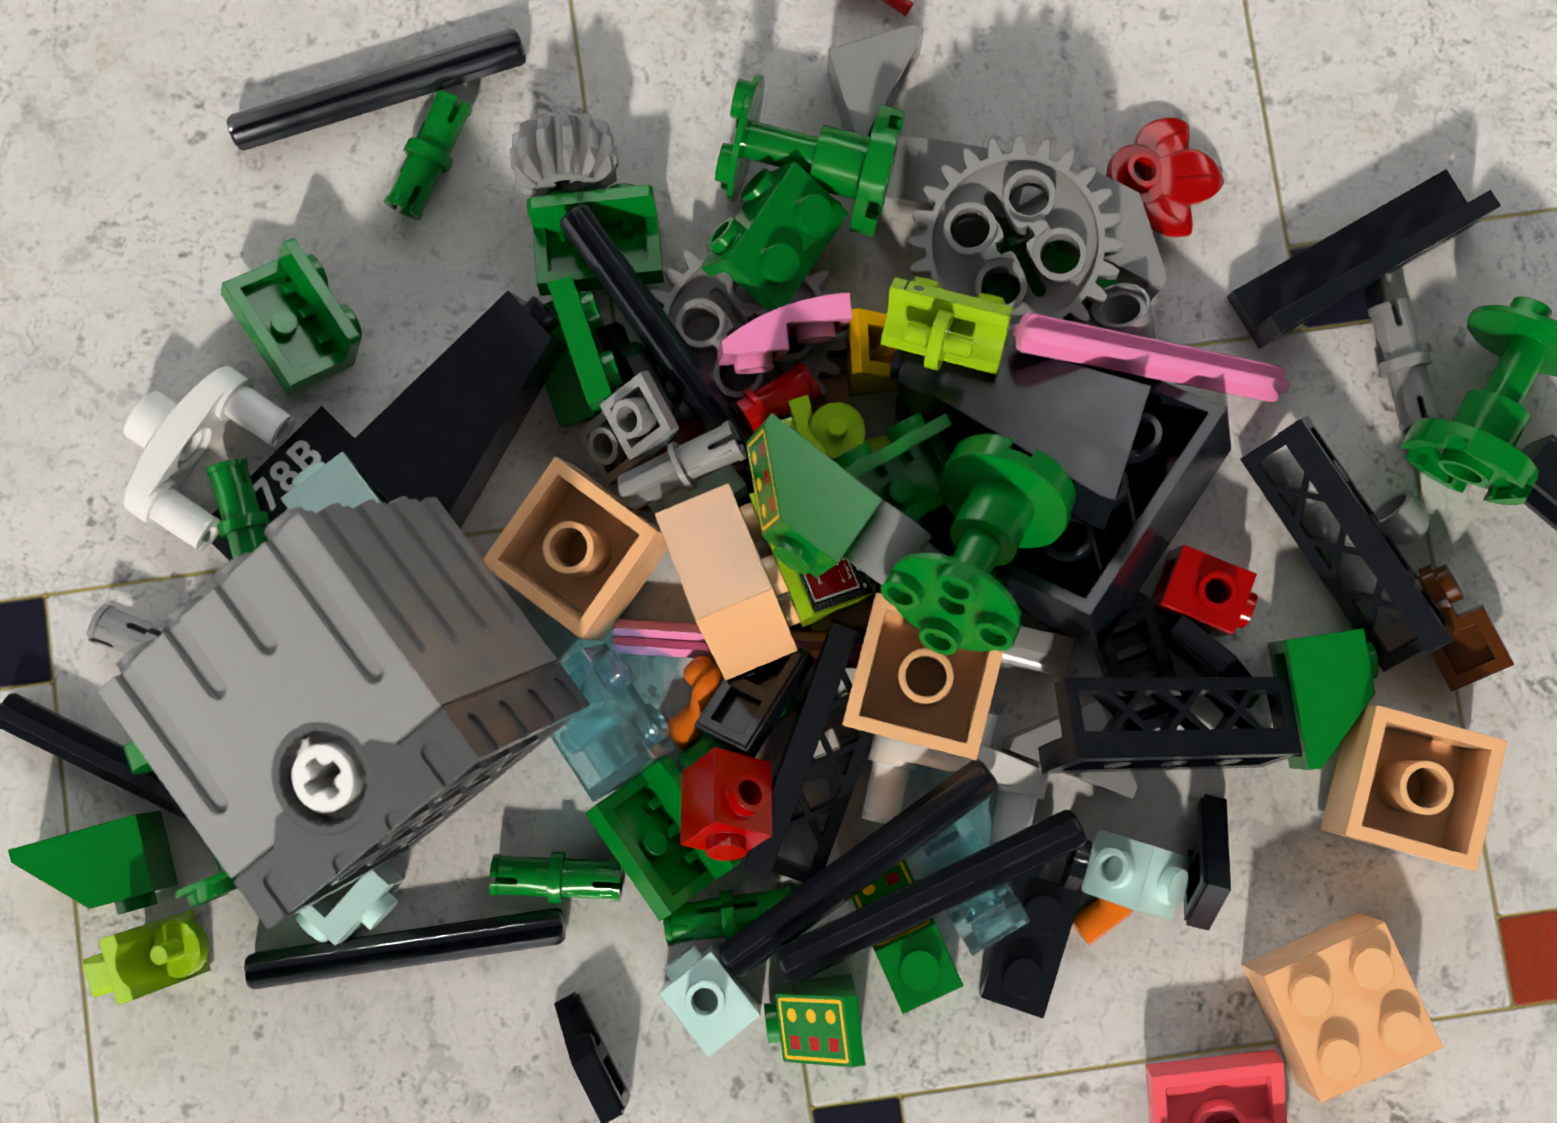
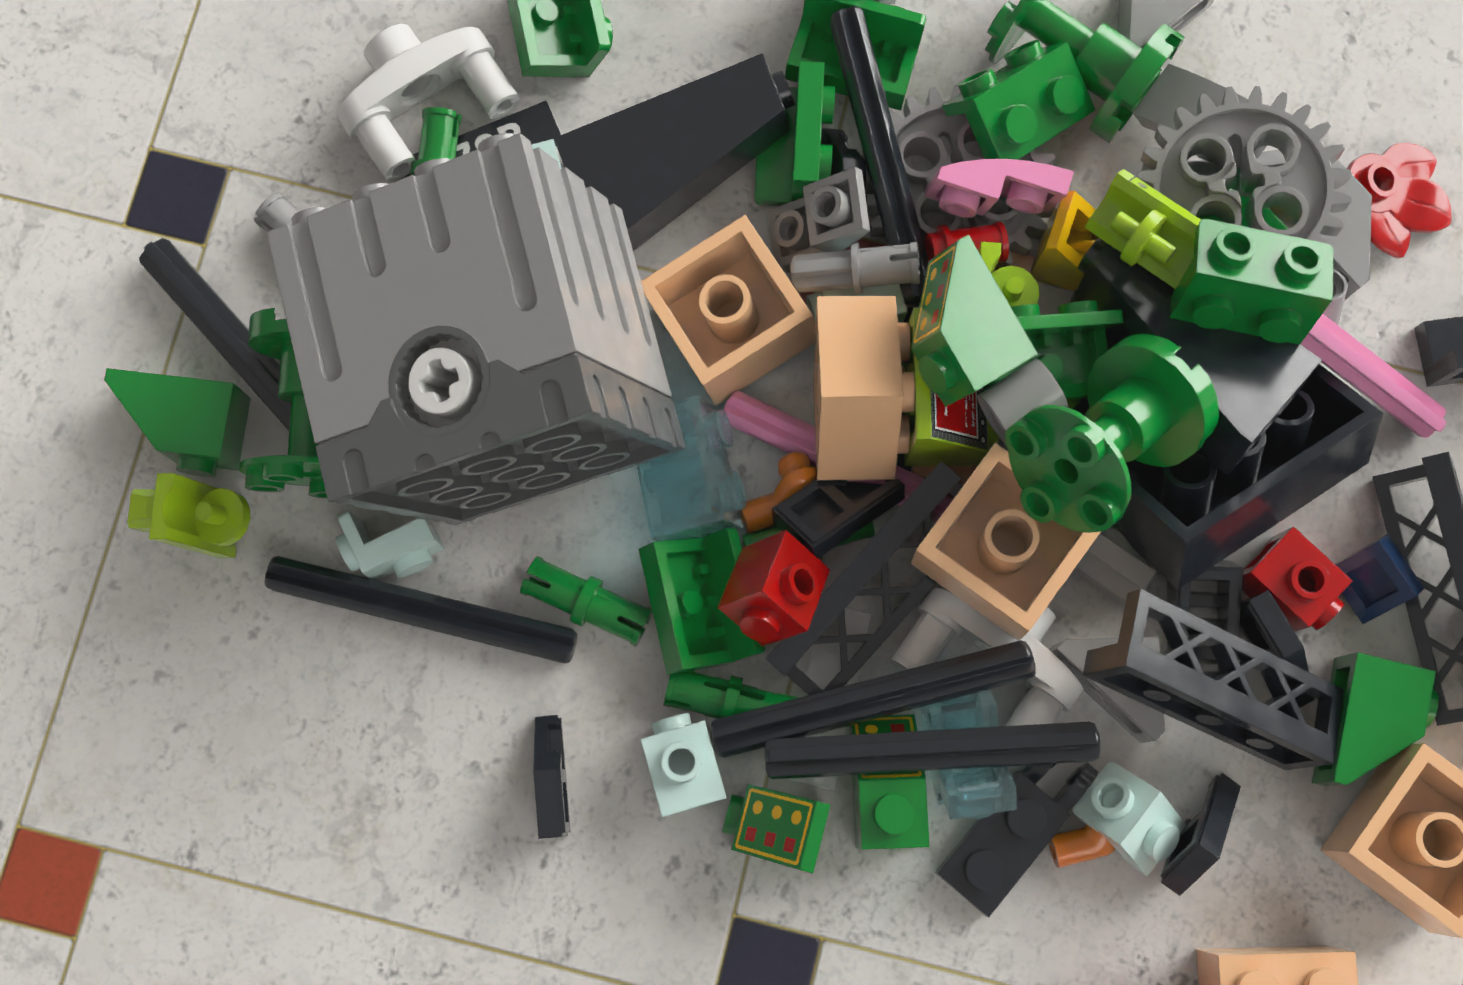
camera: 15 degrees right, 5 degrees down
(1059, 342) = (1254, 282): none -> green bracket
(1279, 558) = (1379, 579): none -> dark blue plate

